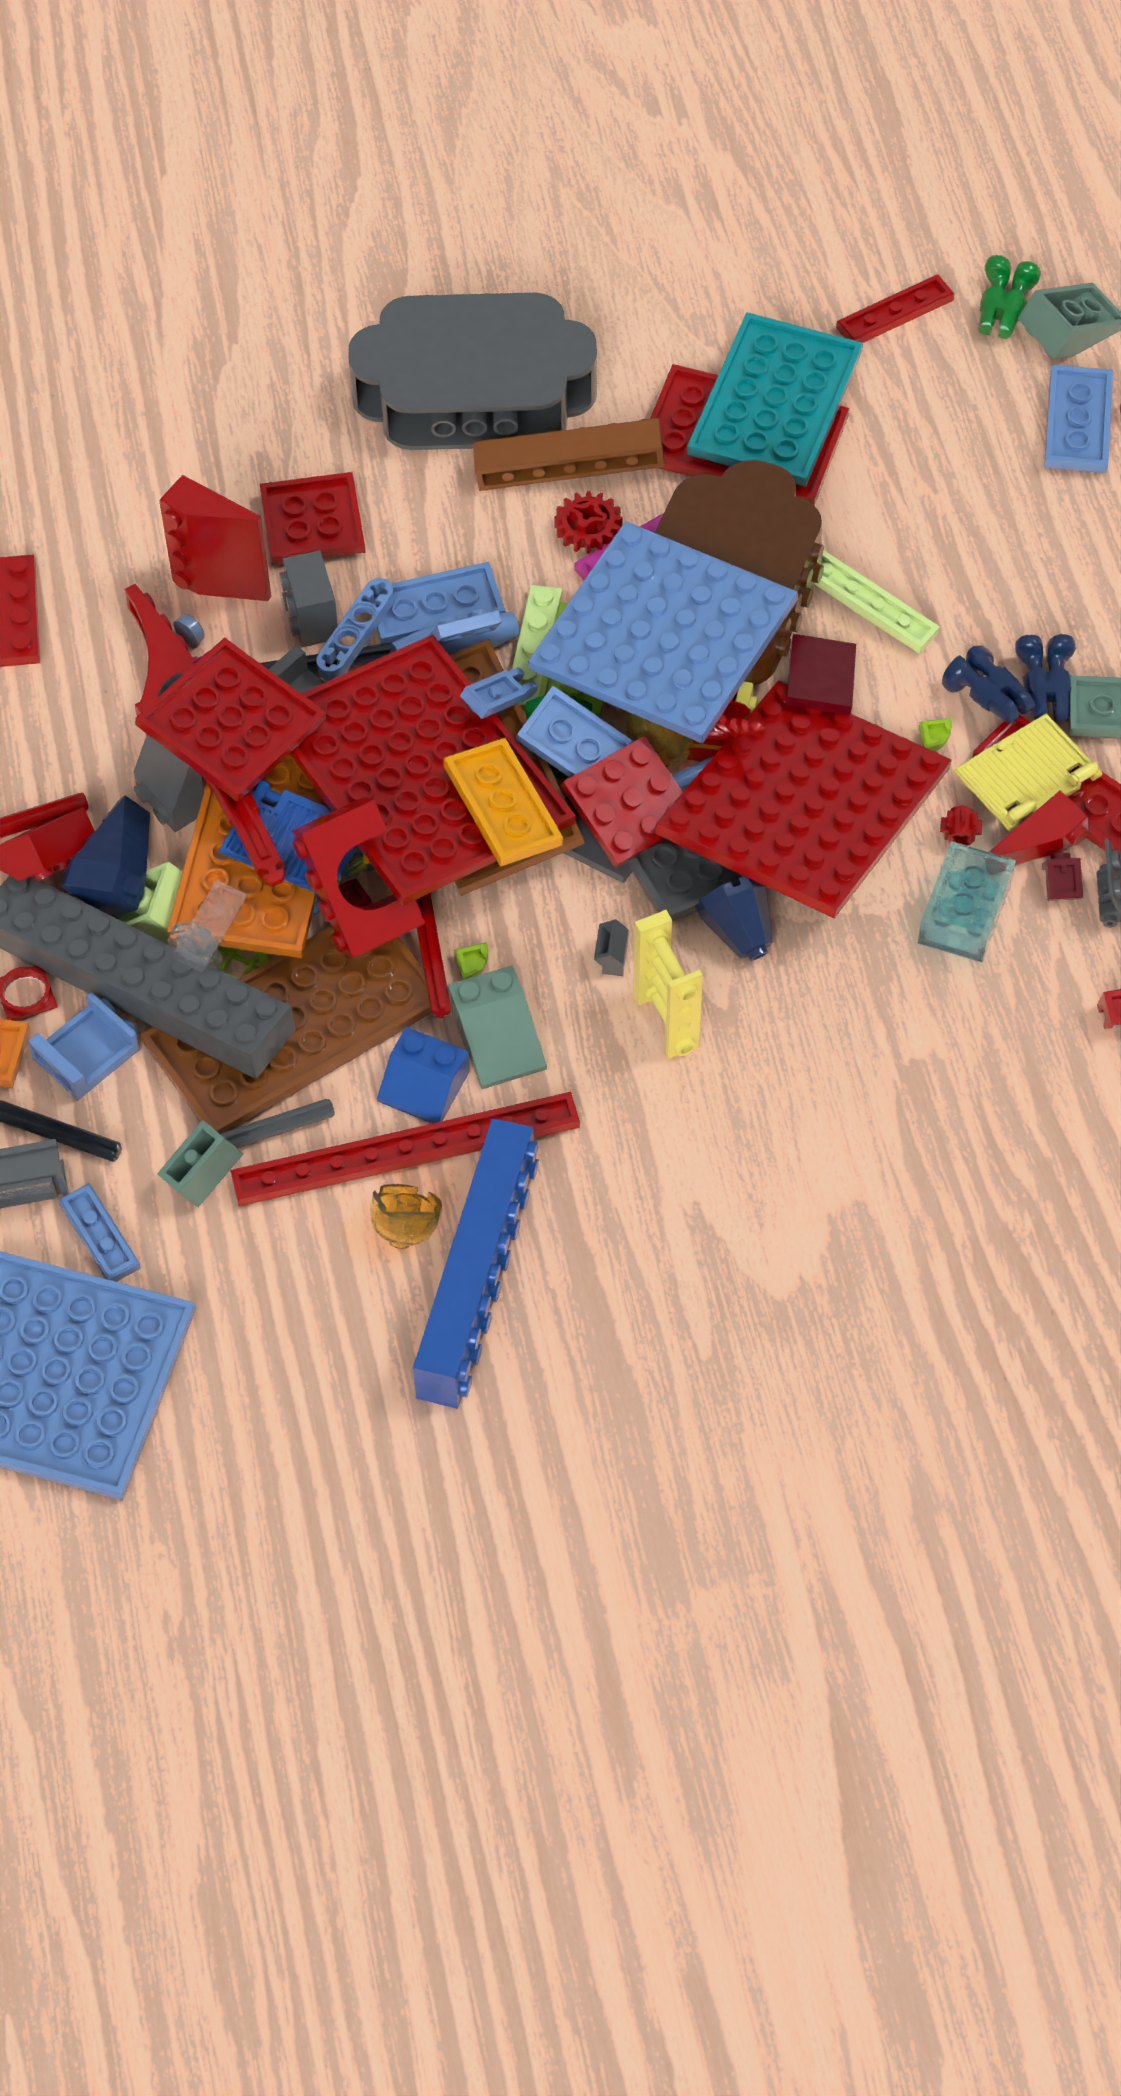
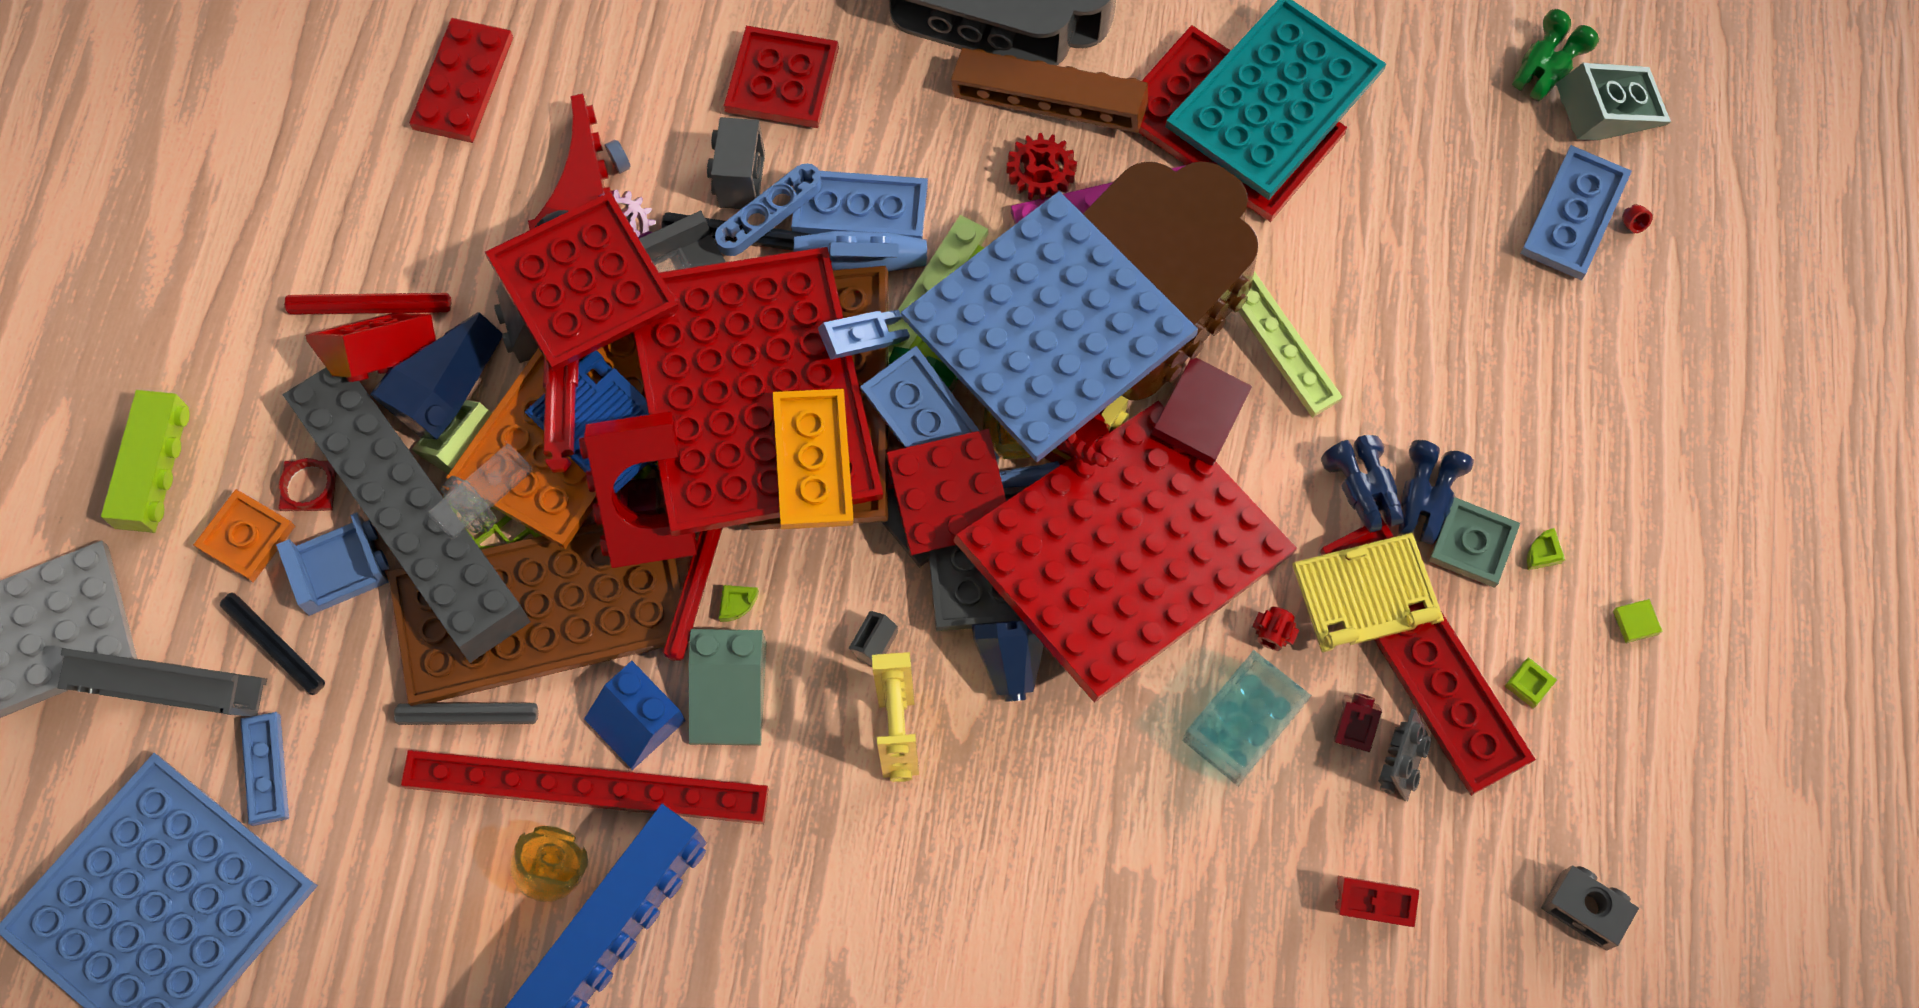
camera: 20 degrees right, 10 degrees up
(200, 1163) = (377, 737): sand green brick -> none
(214, 543) = (658, 77): red slope -> none
(895, 310) = (1437, 35): red tile -> none
(935, 733) = (1292, 511): lime tile -> none
(1046, 831) = (1359, 668): red slope -> none

